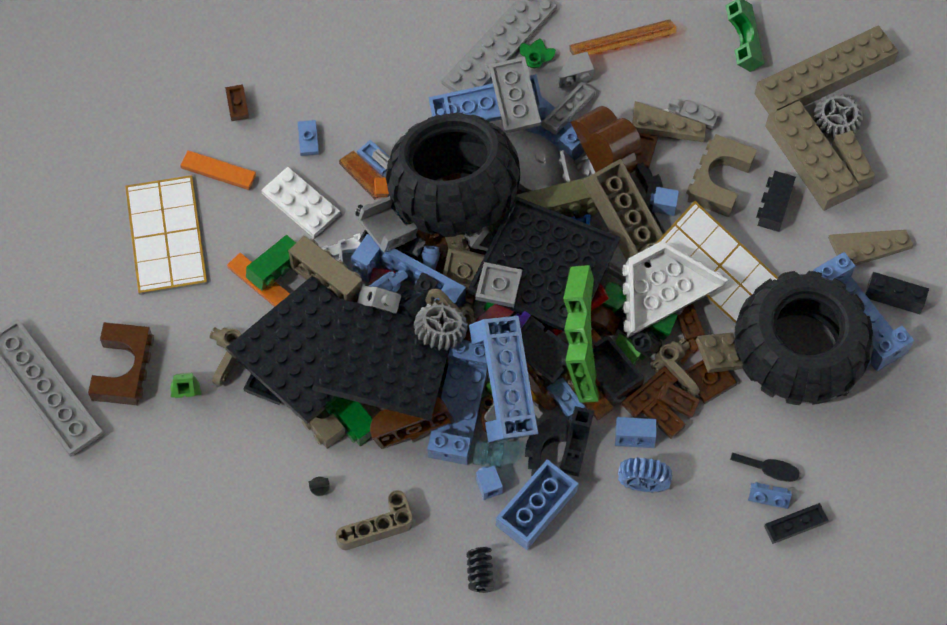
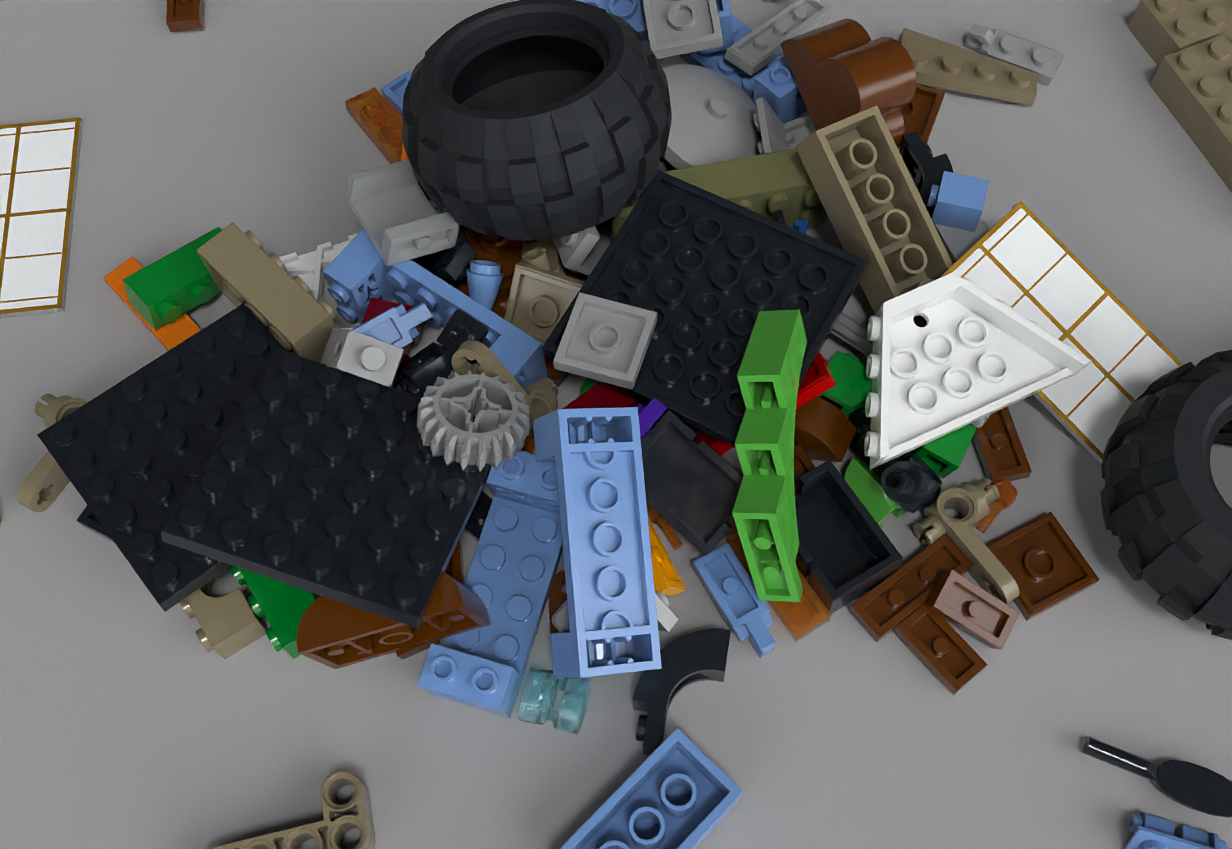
camera: 10 degrees right, 0 degrees up
(218, 170) = (129, 111): orange tile -> none
(300, 202) = (265, 175): white plate -> none
(308, 138) = (299, 65): medium blue plate -> none
(319, 486) = (188, 742): pearl dark grey plate -> none
(489, 482) = (548, 764): medium blue brick -> none
(543, 395) = (683, 579): reddish brown plate -> none
(577, 441) = (746, 689): black arch -> none
(635, 432) = (877, 675): medium blue hinge -> none
(645, 475) = (895, 780): medium blue gear -> none
(719, 352) = (1063, 512): dark tan plate -> none
(720, 152) = (1071, 124): dark tan arch -> none
(775, 201) = (1177, 217): black brick -> none

